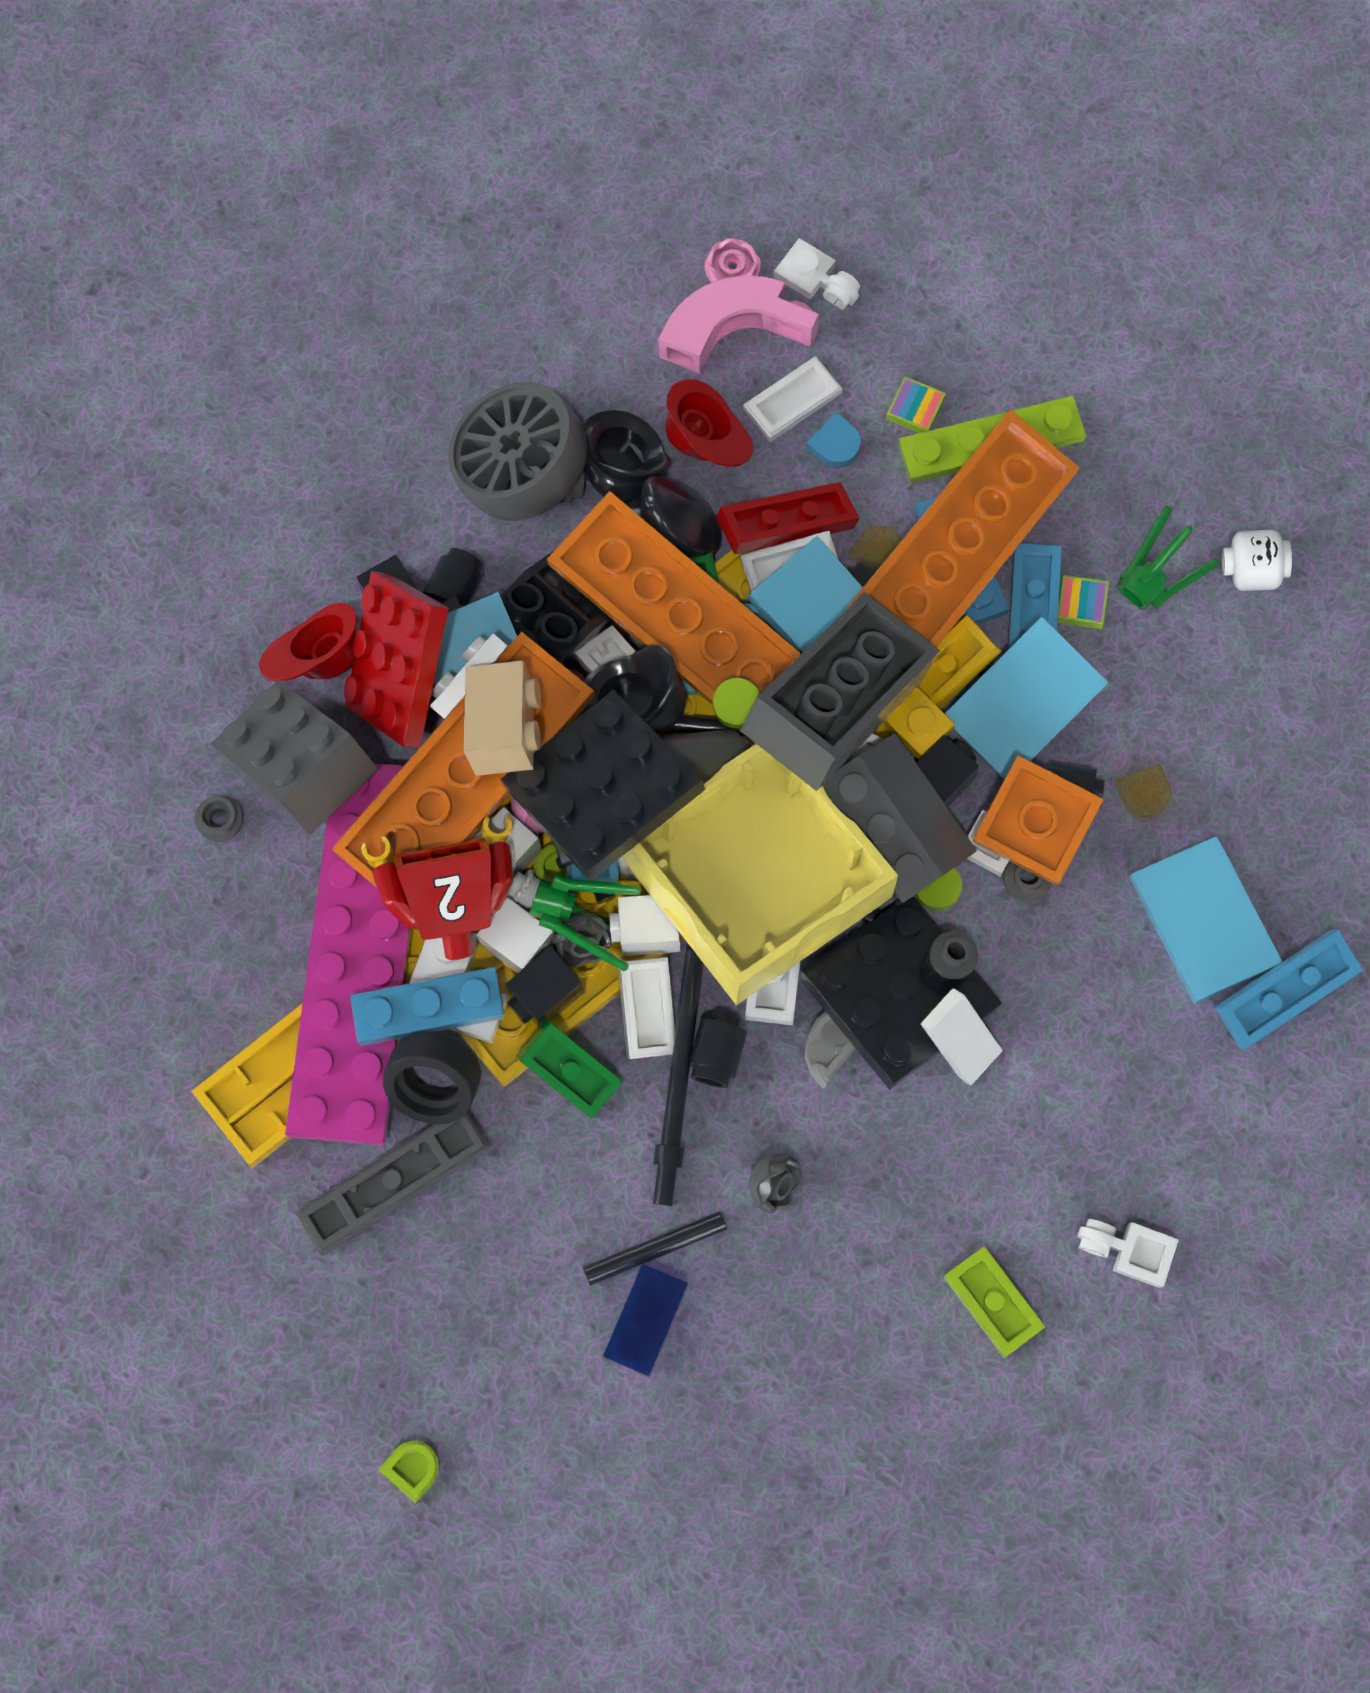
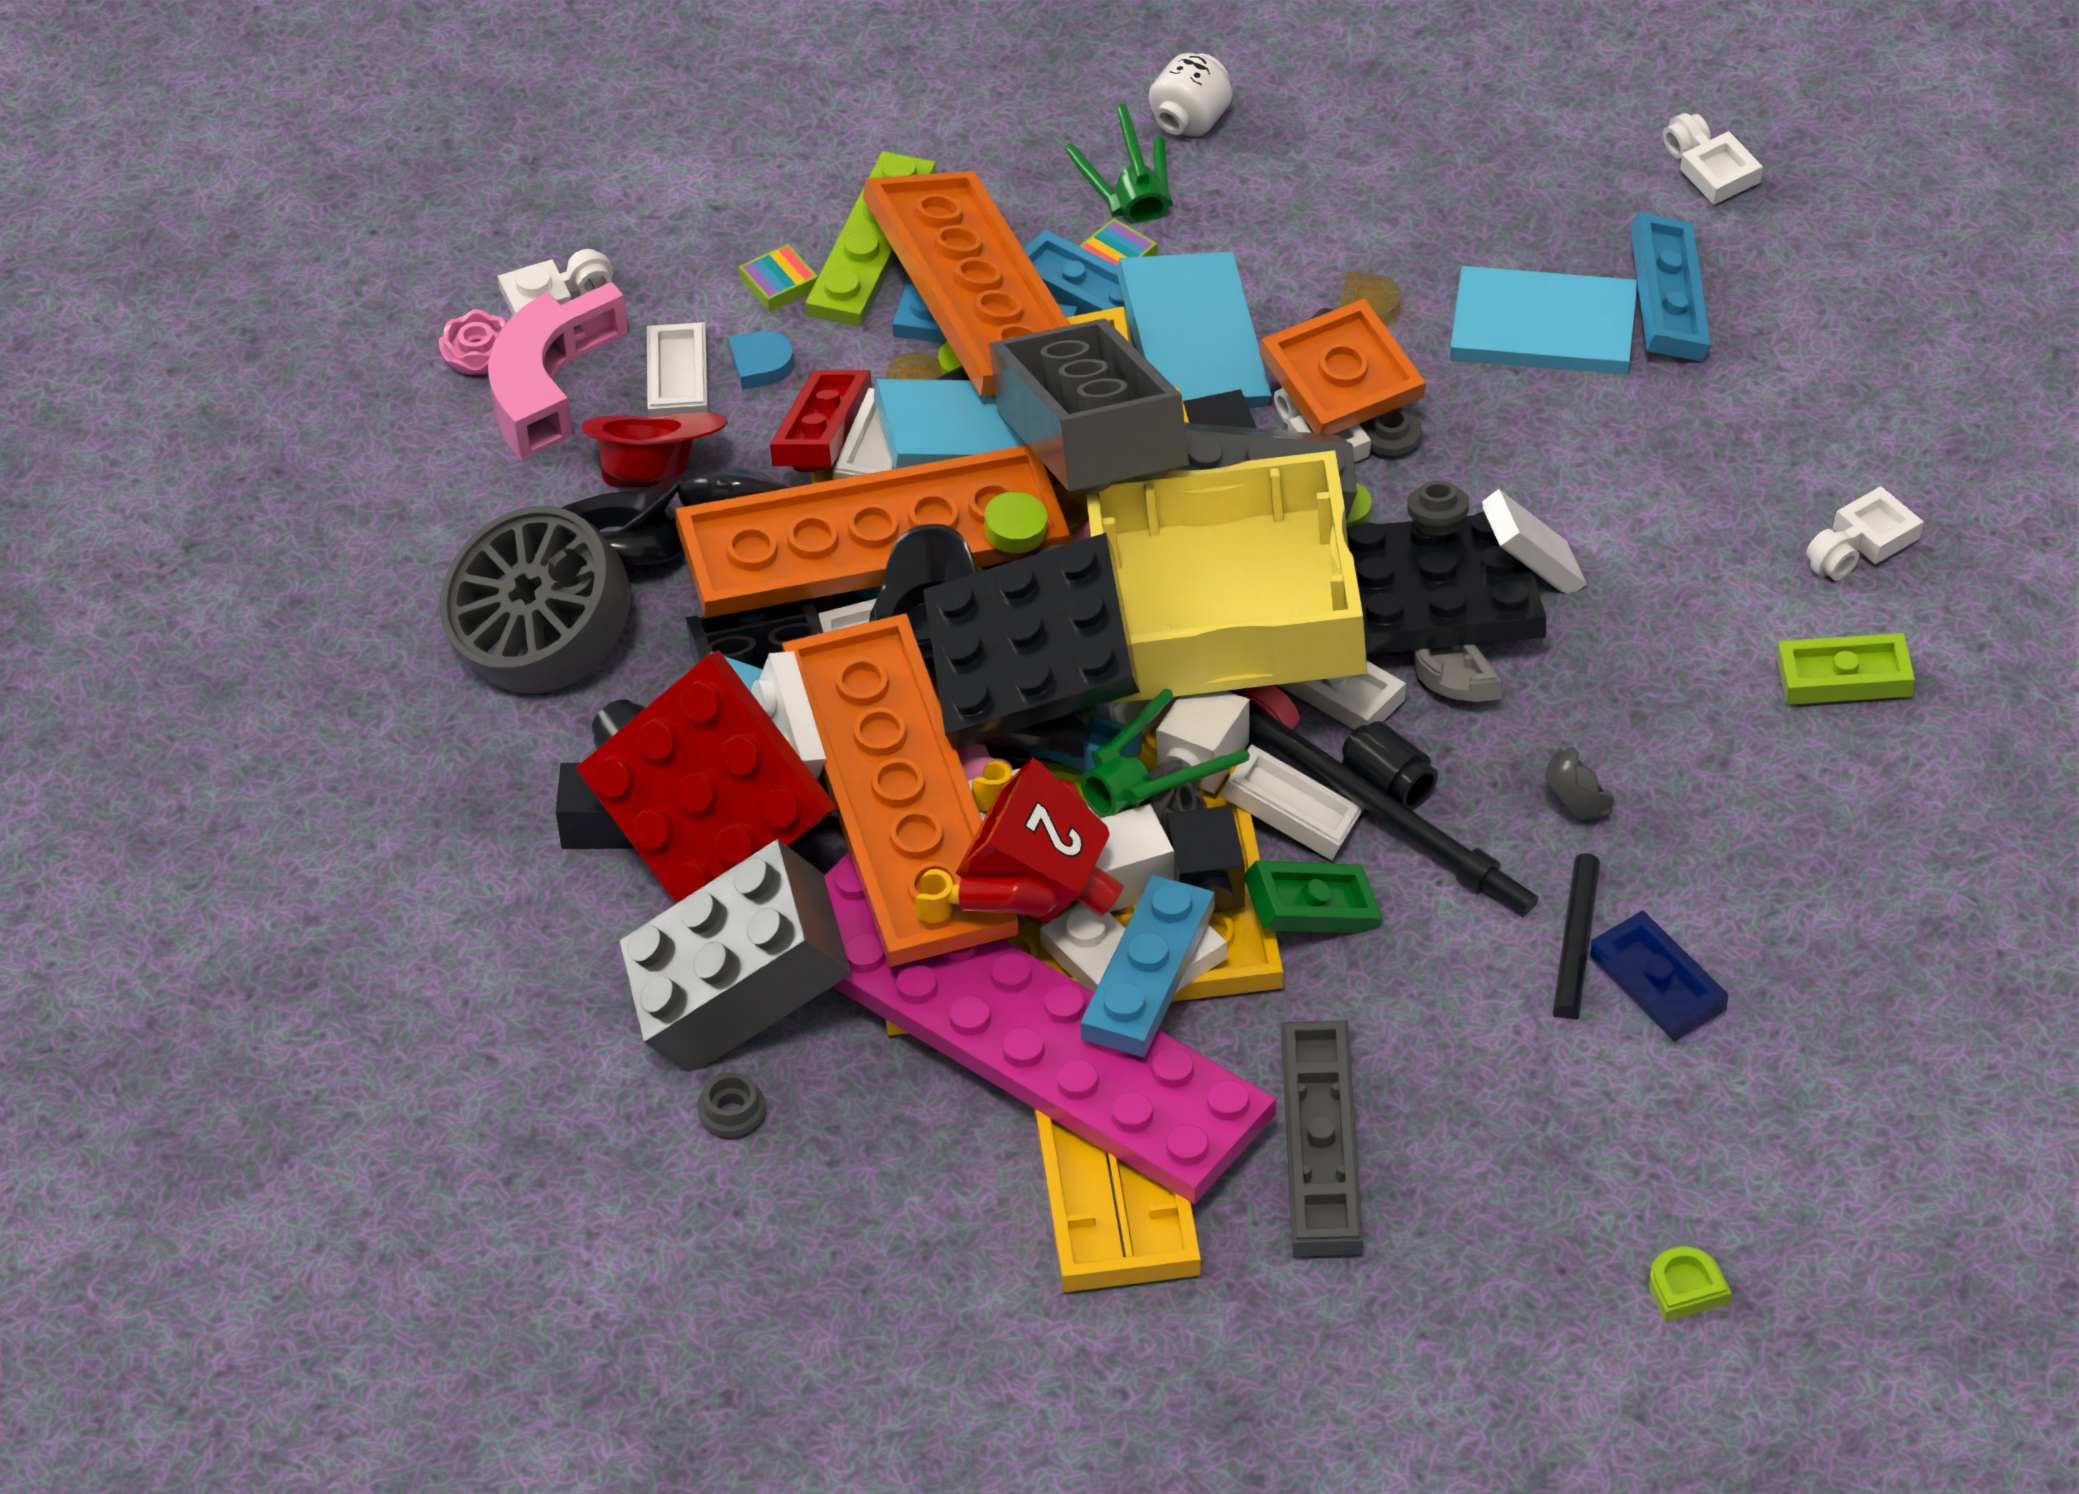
camera: 60 degrees left, 25 degrees down
(314, 648) = (602, 893): red piece -> none
(436, 1052) = (1274, 1009): black tyre -> none
(500, 718) = (881, 681): tan brick -> none

